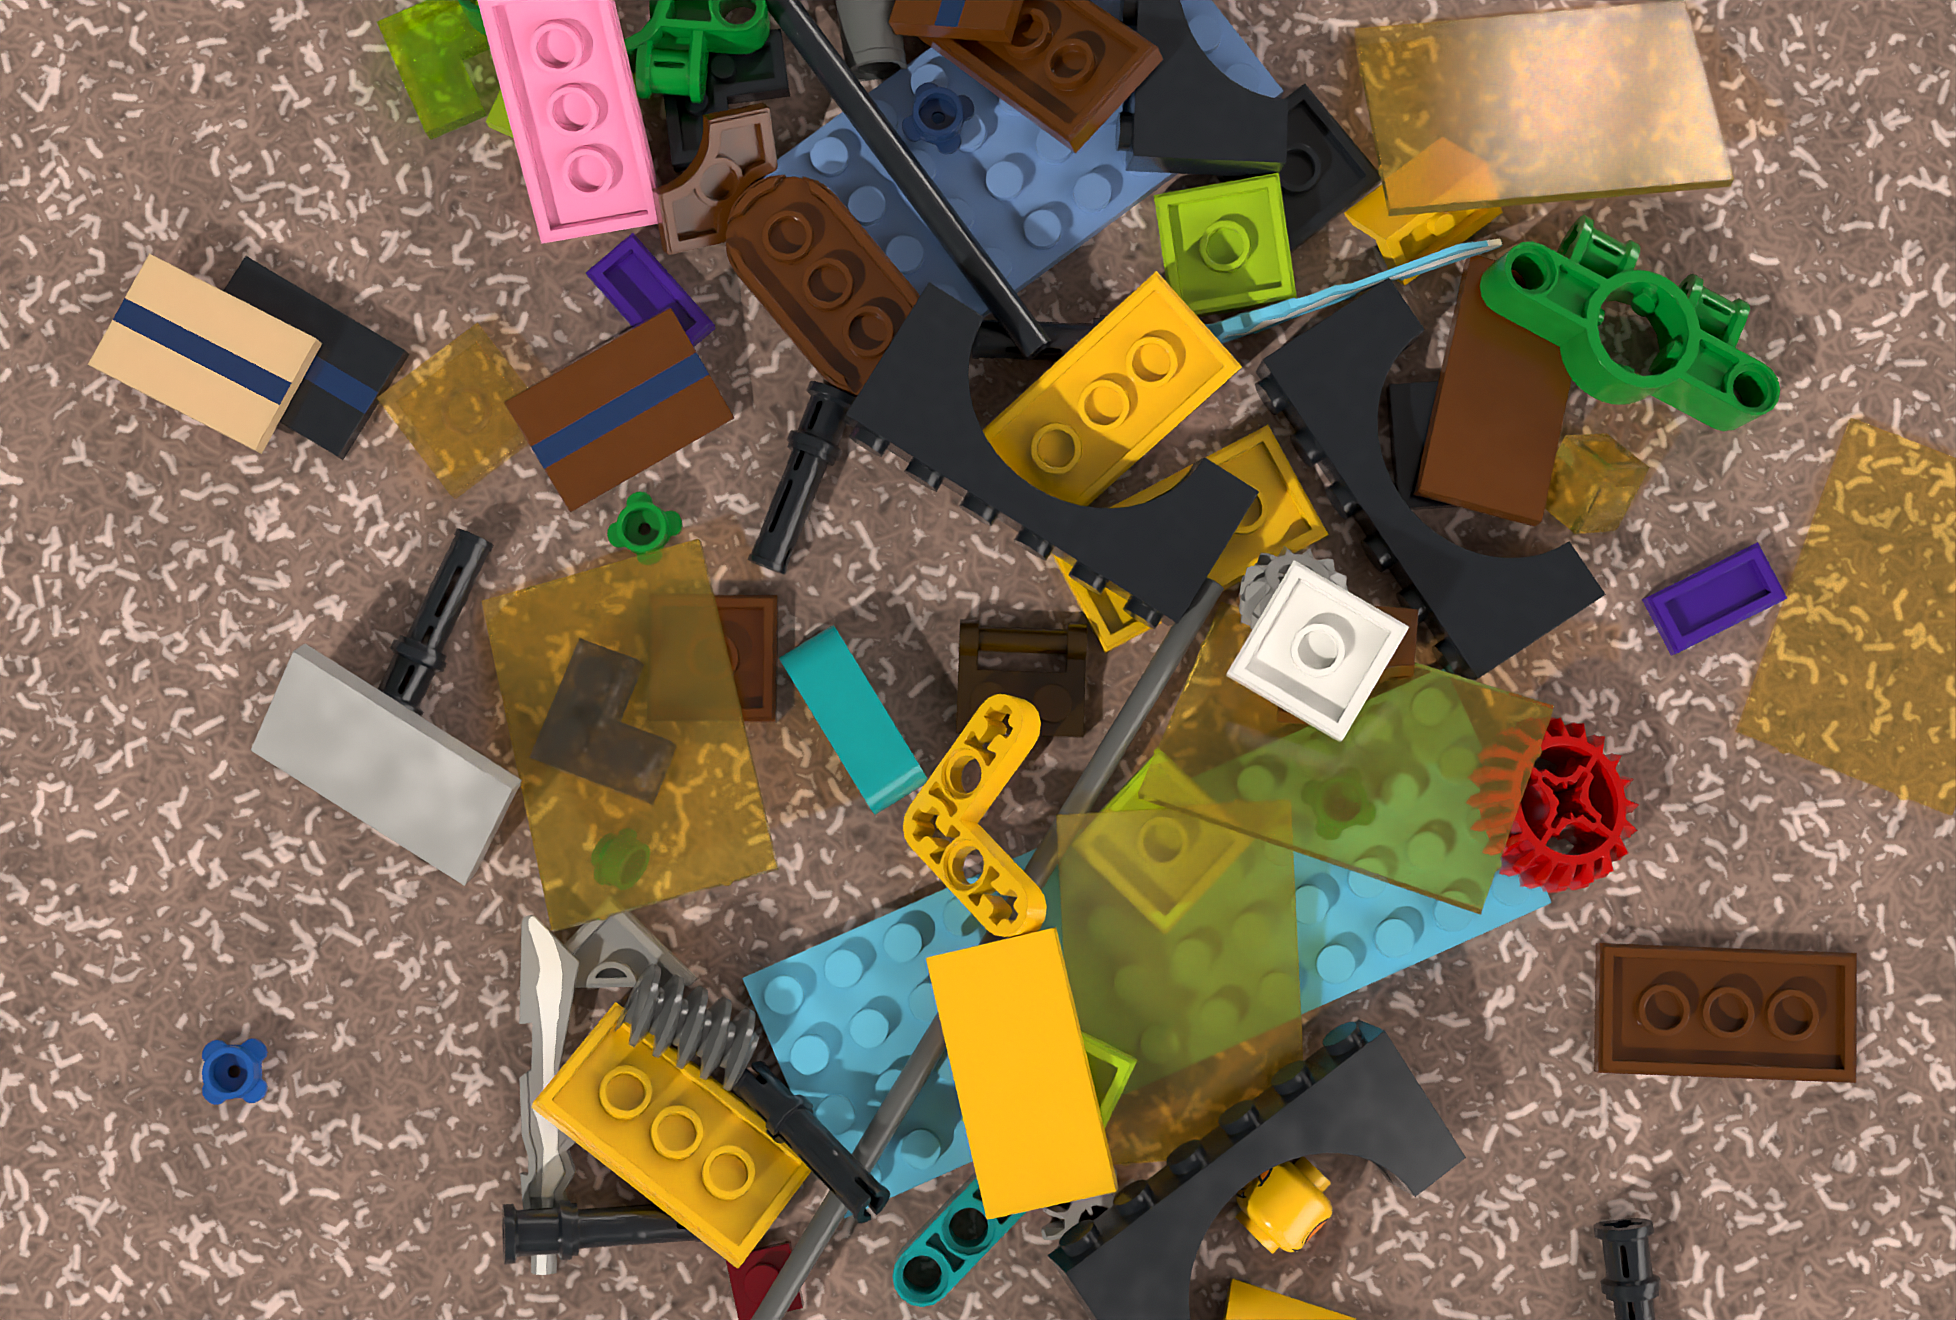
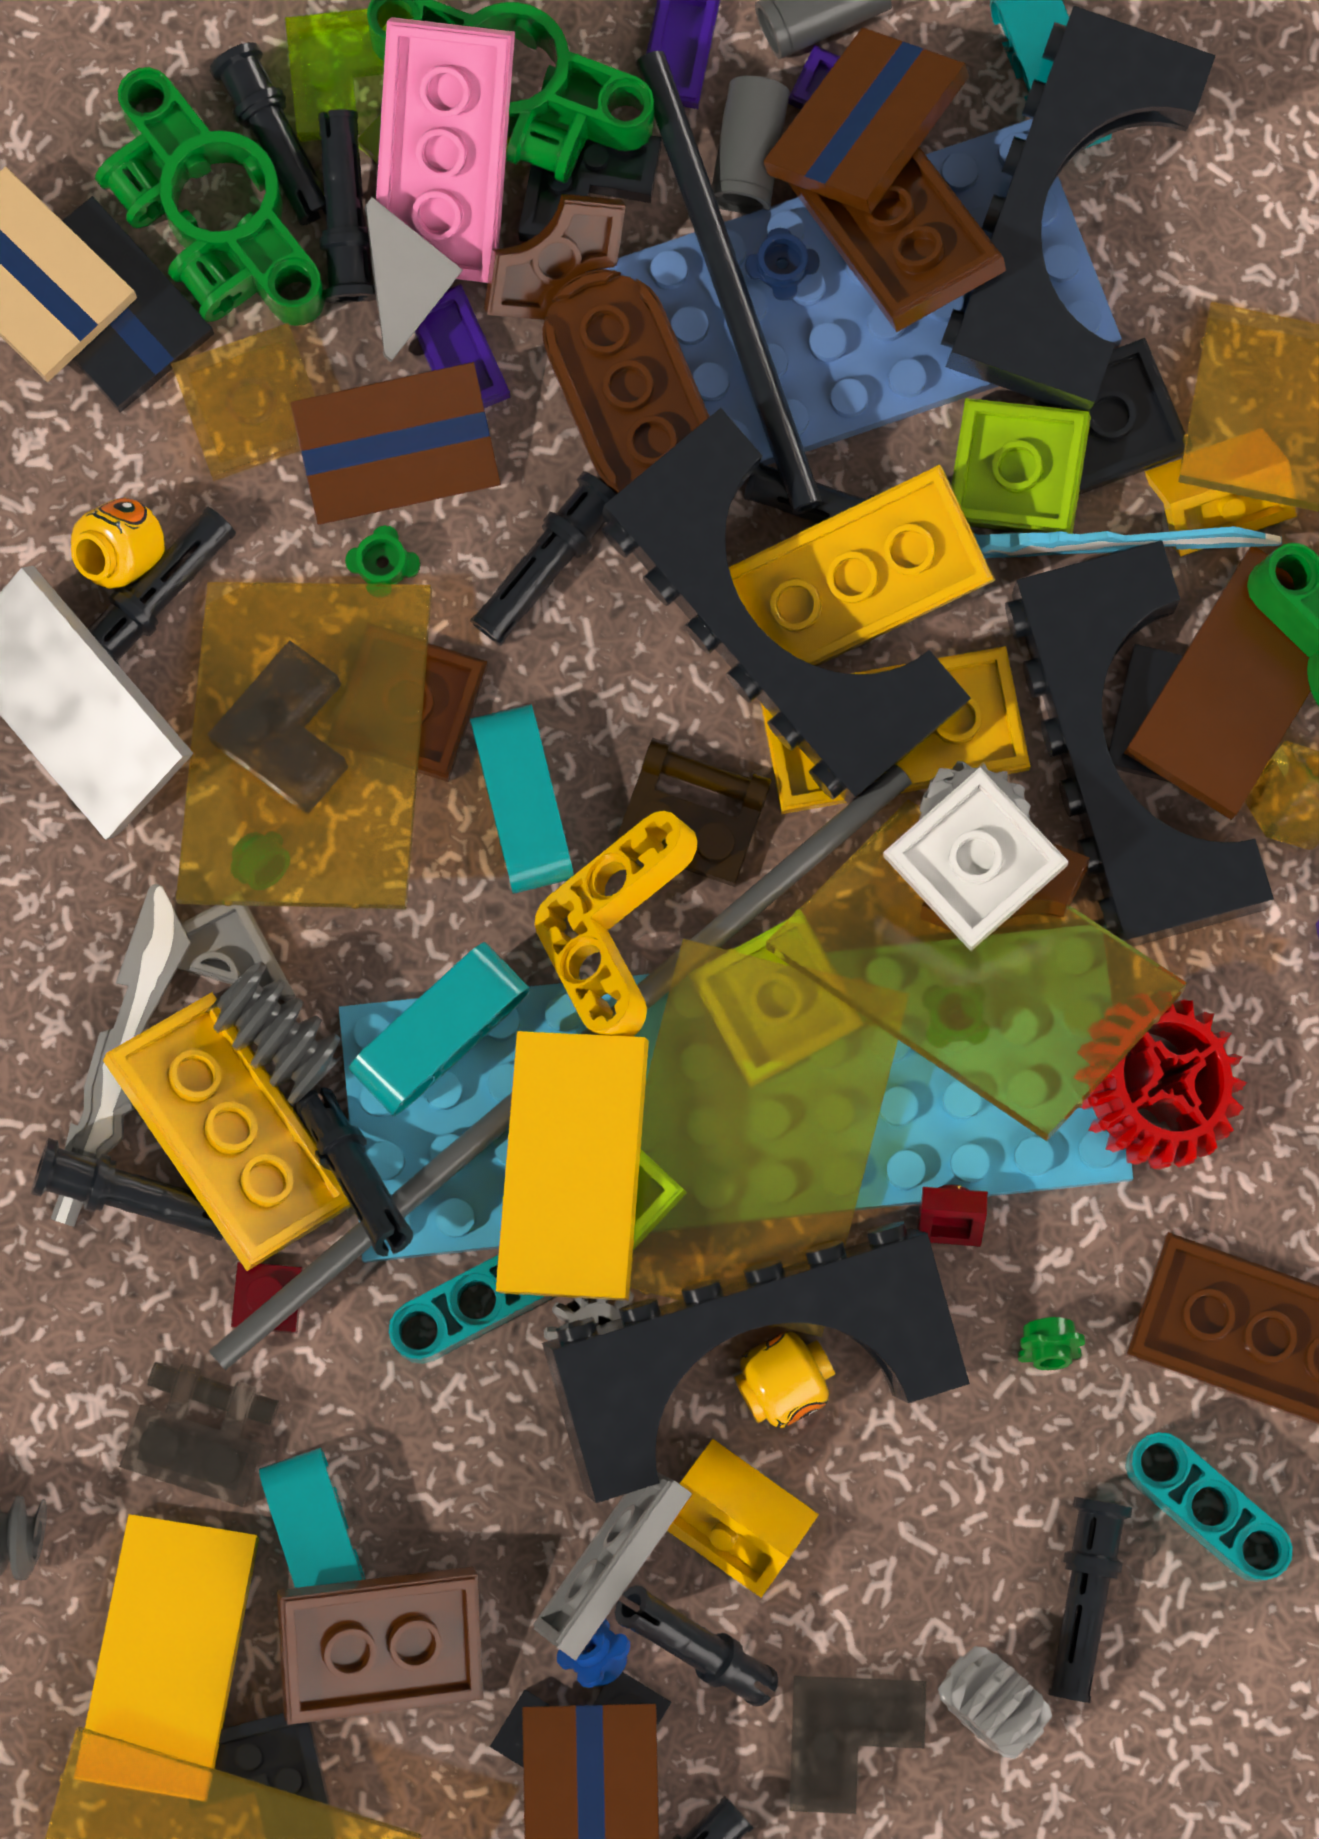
camera: 20 degrees right, 5 degrees down
(301, 200) = (239, 262): none -> green piece
(380, 593) = (117, 543): none -> yellow head
(383, 120) = (261, 110): none -> black pin
(506, 220) = (346, 236): none -> black pin
(578, 242) = (406, 274): none -> light grey tile
(848, 976) = (439, 1028): none -> teal beam
(1393, 993) = (953, 1215): none -> dark red plate
(1525, 1087) = (1050, 1343): none -> green plate
(1753, 1203) = (1239, 1516): none -> teal beam

